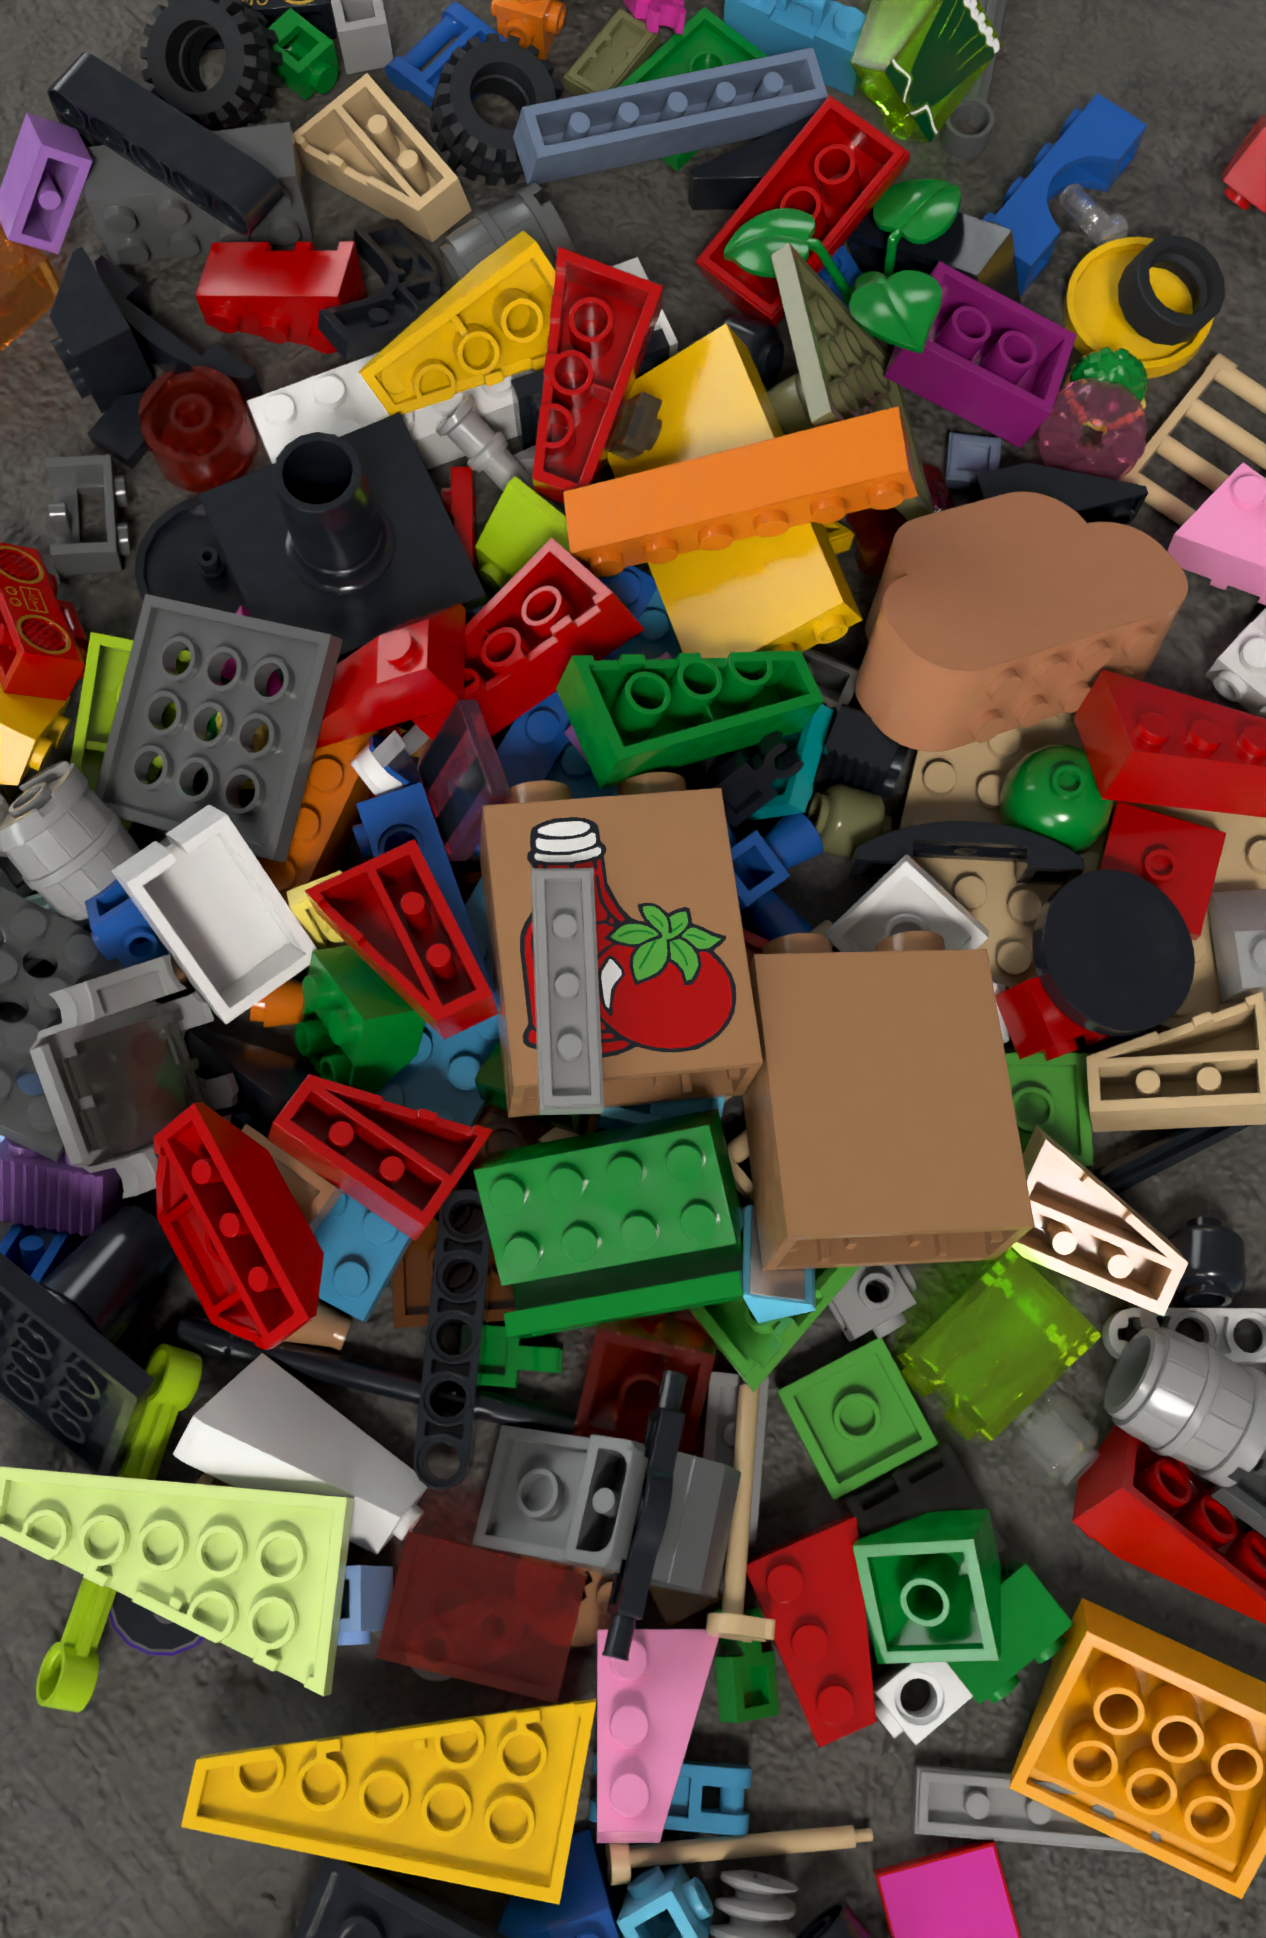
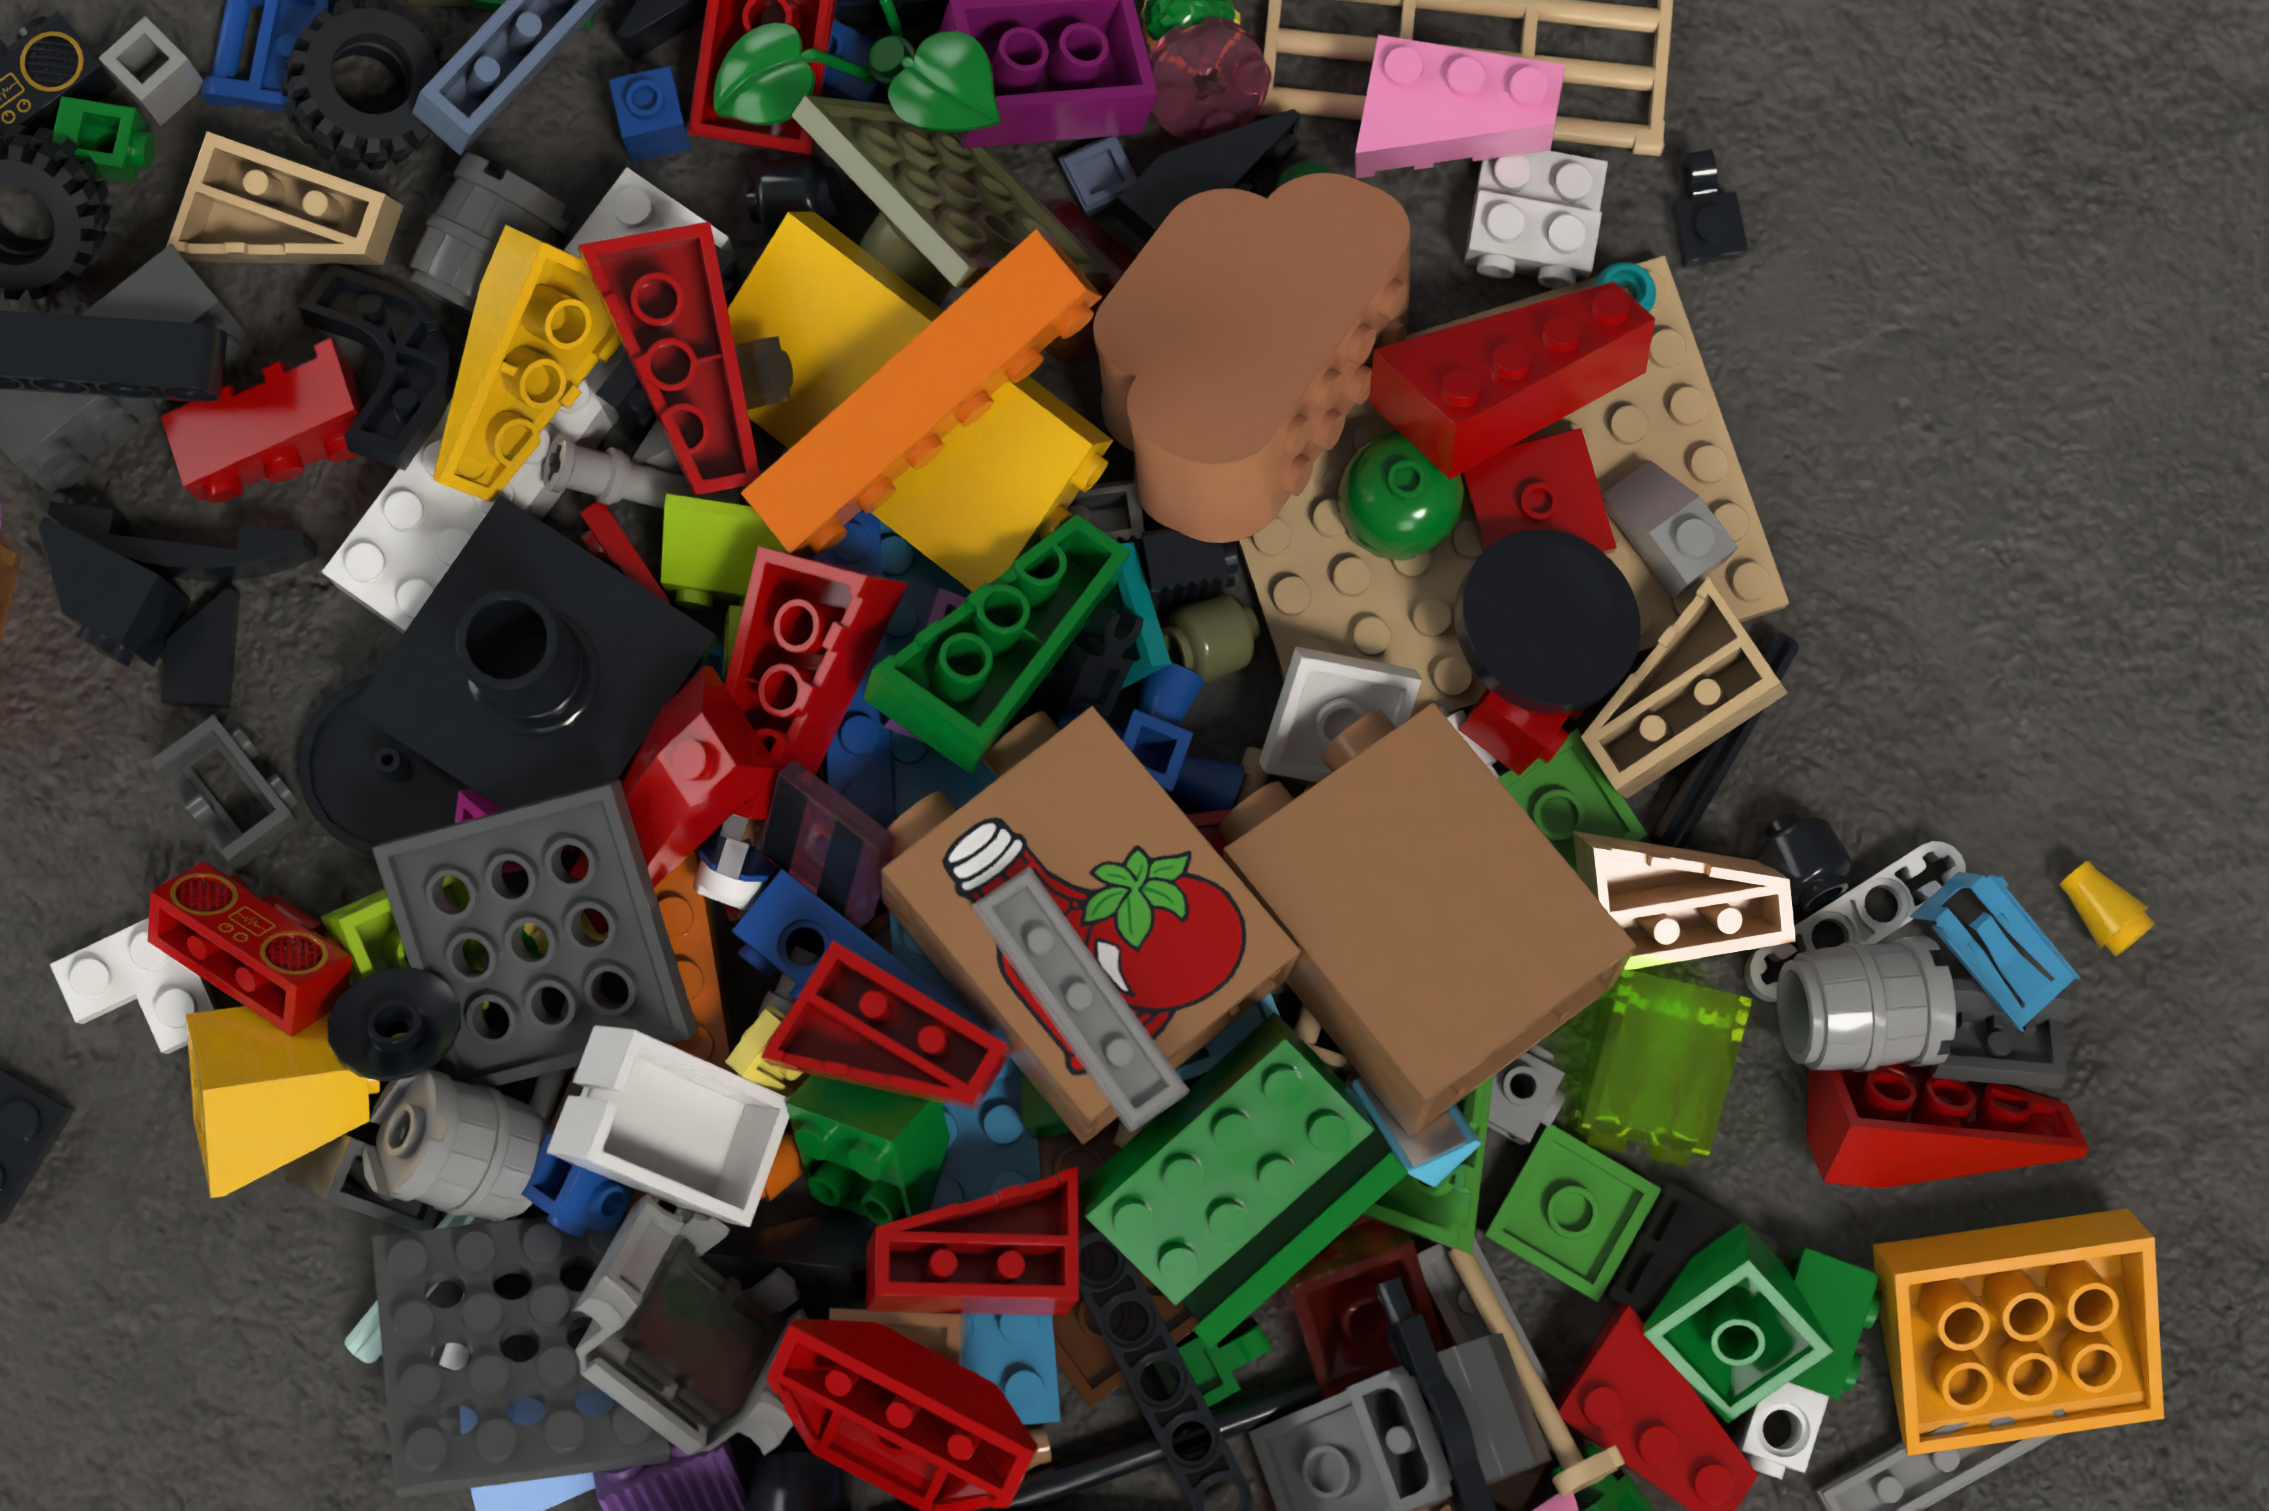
camera: 40 degrees left, 5 degrees up
(76, 724) = (391, 1004): none -> black dish
(197, 428) = (262, 602): clear red brick -> none
(677, 239) = (650, 114): none -> blue brick
(1036, 857) = (1414, 566): black slope -> none
(1054, 1441) = (1765, 1118): clear head -> none

